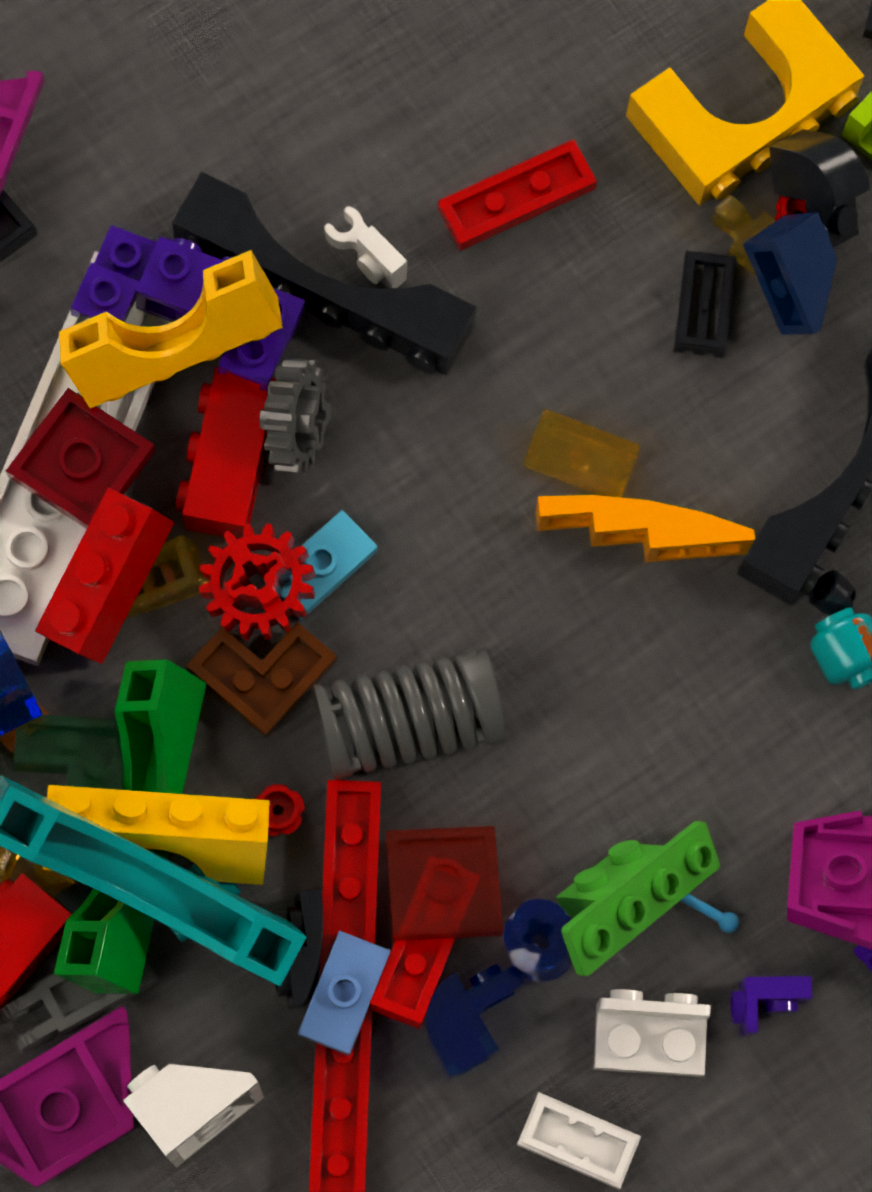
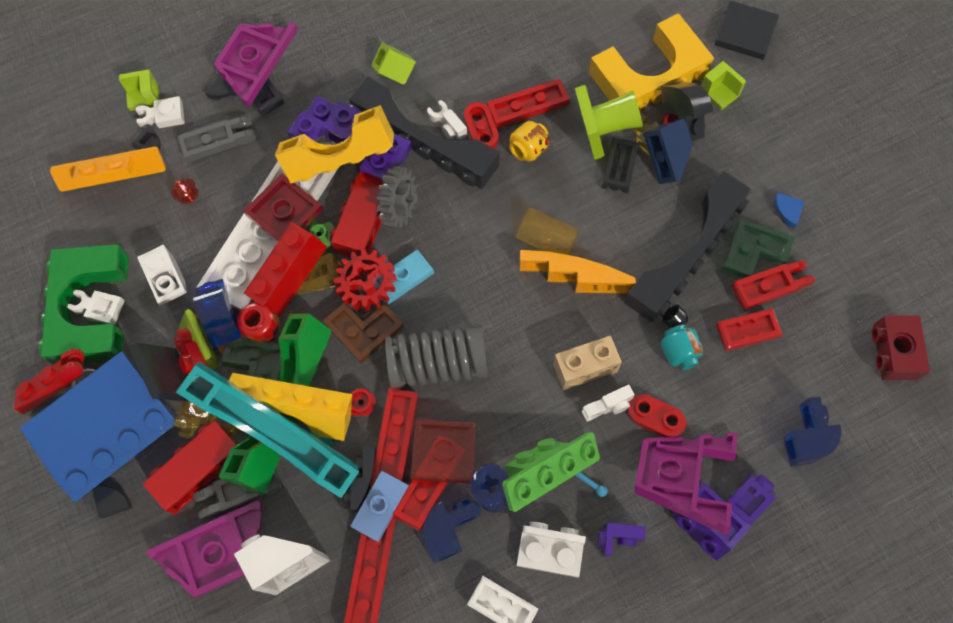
camera: 15 degrees right, 5 degrees down
(55, 670) = (258, 322): none -> red head
(159, 485) = (314, 228): none -> bright green plate
(242, 133) = (393, 63): none -> lime panel
(434, 254) = (482, 128): none -> red plate
(528, 275) = (529, 141): none -> yellow head
(674, 218) = (607, 117): none -> lime plant
(680, 696) = (587, 363): none -> tan brick
(738, 761) = (616, 401): none -> white plate
(813, 783) = (656, 417): none -> red plate

